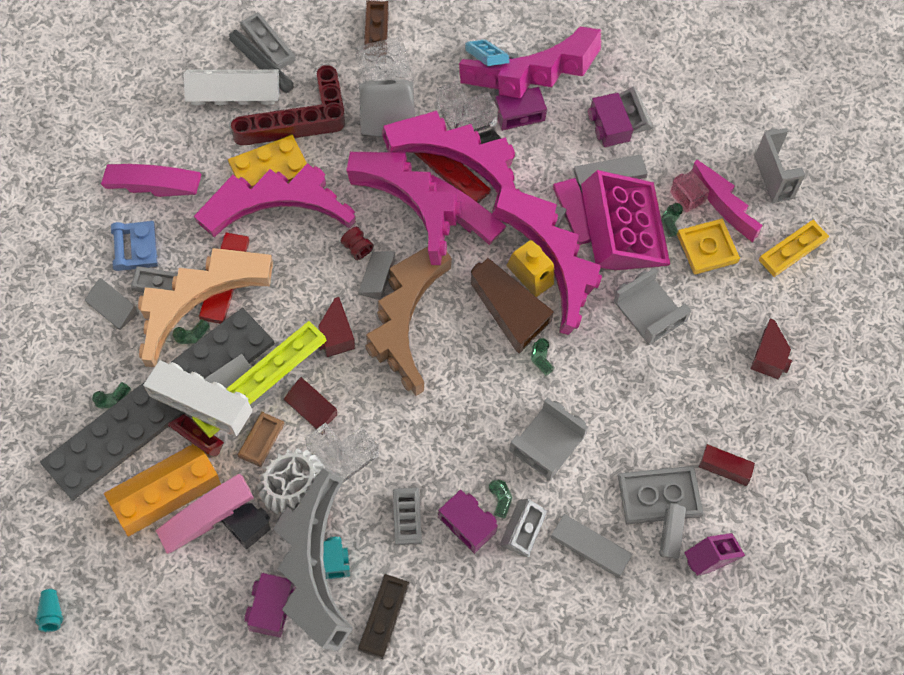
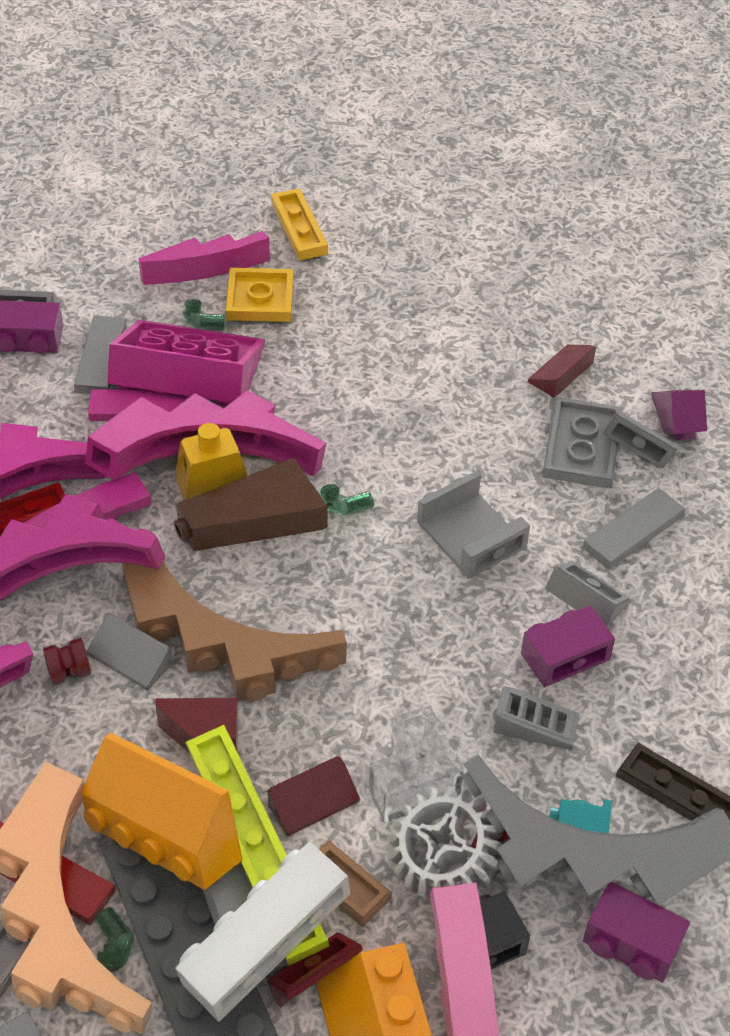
camera: 70 degrees left, 15 degrees down
(253, 323) = (161, 812): none -> light orange slope
(503, 495) = (541, 599): clear green arm -> none
(650, 307) = (324, 374): light grey panel -> none
(689, 191) = (173, 285): clear pink brick -> none
(772, 352) = (429, 281): dark red slope -> none
(779, 183) = (187, 197): light grey panel -> none

